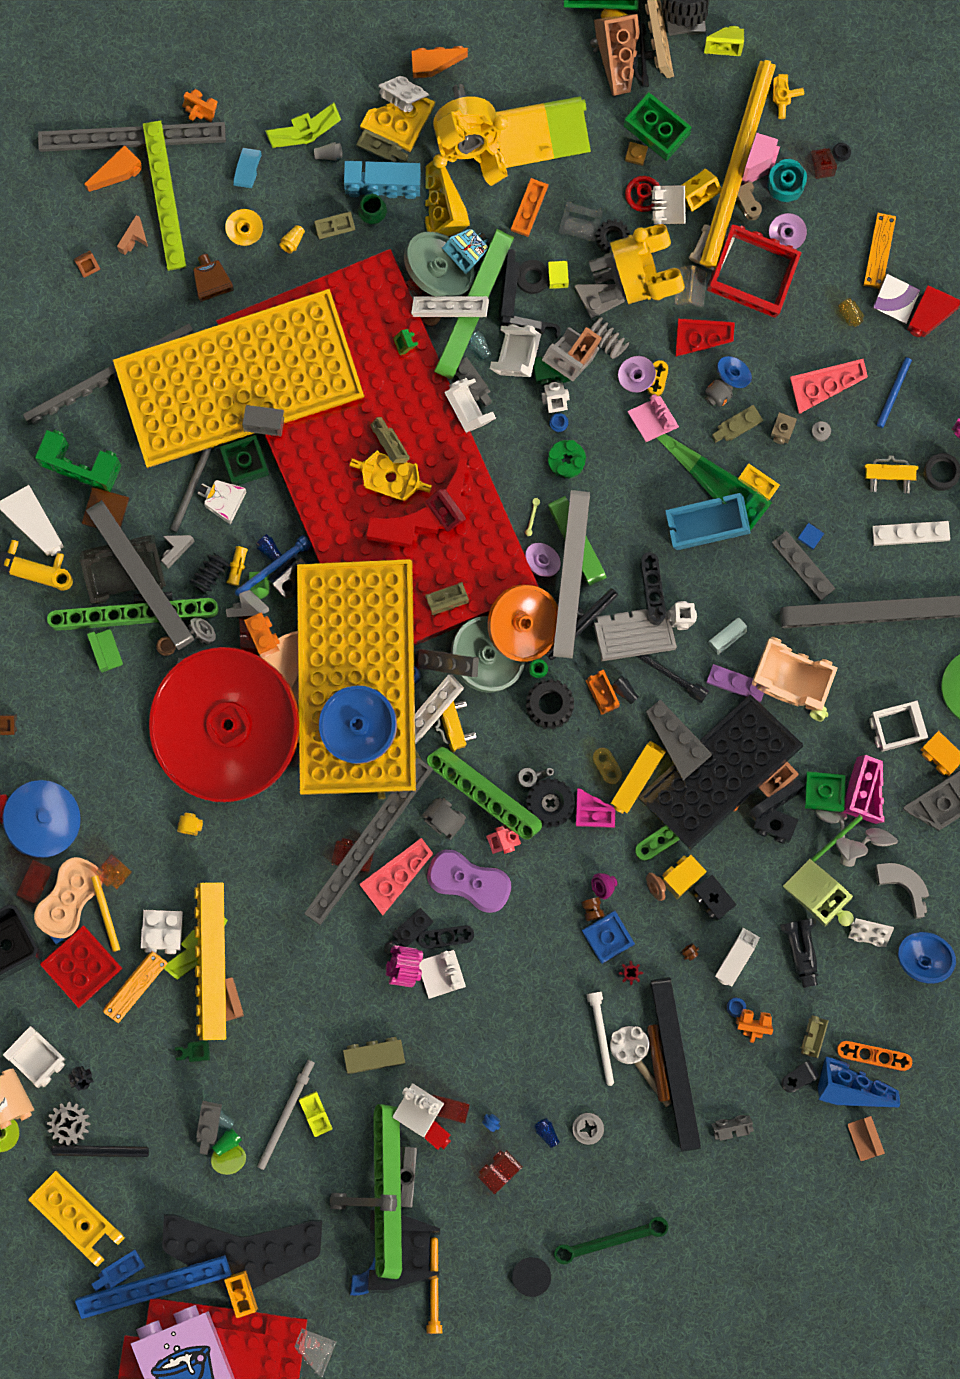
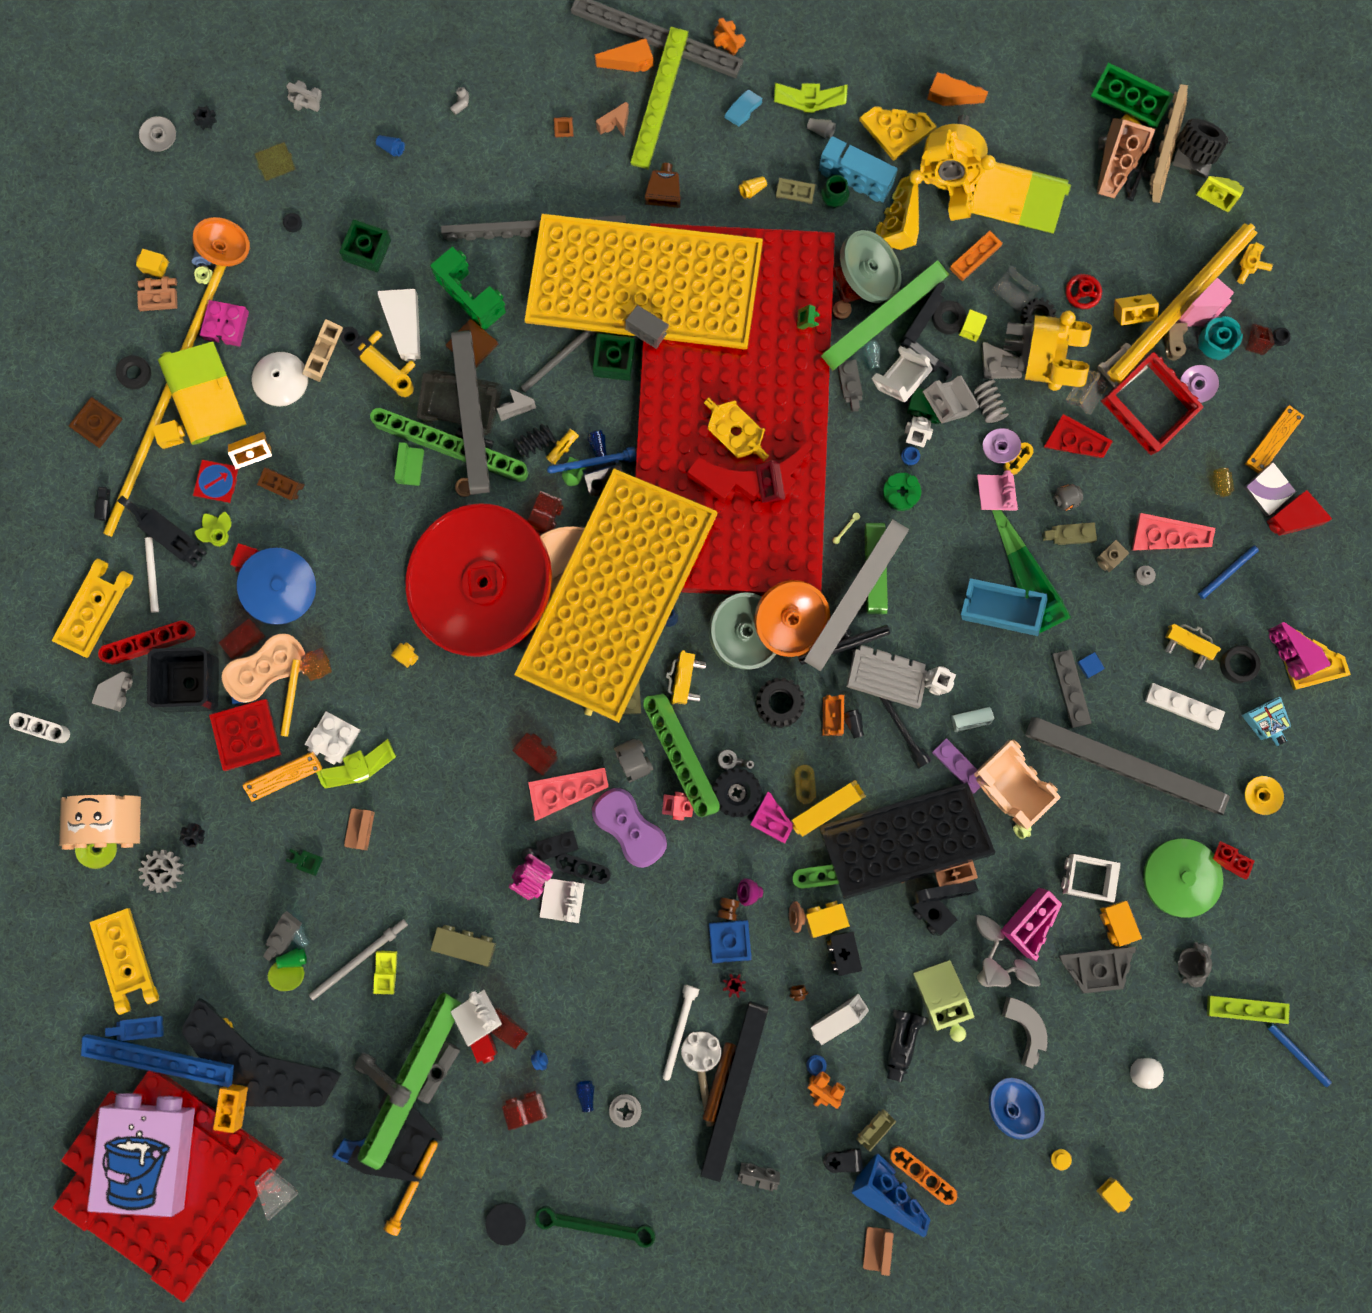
camera: 25 degrees right, 0 degrees up
(35, 1057) = (163, 796): white panel -> none
(100, 1151) = (177, 910): black axle -> none
(202, 630) = (502, 488): light grey gear -> none
(210, 961) = (359, 787): yellow brick -> none
(223, 499) = (579, 382): white torso -> none
(240, 219) = (715, 149): yellow dish -> none
(248, 606) = (553, 485): light grey slope -> none
(261, 634) = (551, 516): orange brick -> none
(357, 724) = (594, 637): blue dish -> none
(364, 848) = (548, 751): dark grey plate -> none
(381, 147) = (869, 142): olive hinge -> none
(389, 441) = (750, 398): olive hinge -> none
(401, 93) = (910, 104): white hinge -> none
(436, 705) = (675, 655): white plate -> none
(447, 598) = (733, 563): olive hinge -> none
(448, 662) = (706, 621): dark grey plate -> none
(450, 306) = (863, 305): white plate -> none
(466, 249) = (902, 264): medium azure torso -> none
(466, 407) = (834, 401): white panel -> none
(538, 663) = (787, 661): green cone -> none
(543, 559) = (837, 570): lavender dish -> none
(585, 346) = (968, 397): nougat slope -> none
(636, 153) = (1094, 253): pearl gold plate -> none
(653, 588) = (921, 642): black beam -> none
(657, 126) = (1125, 237): green brick -> none
(668, 204) = (1103, 309): white hinge -> none
(678, 740) = (881, 793): dark grey wing -> none
(734, 372) = (1091, 485): blue dish -> none
(759, 480) = (1068, 593): yellow plate -> none
(825, 791) = (994, 905): green plate -> none
(840, 835) = (984, 954): bright green axle -> none
(870, 932) = (975, 1058): white hinge -> none

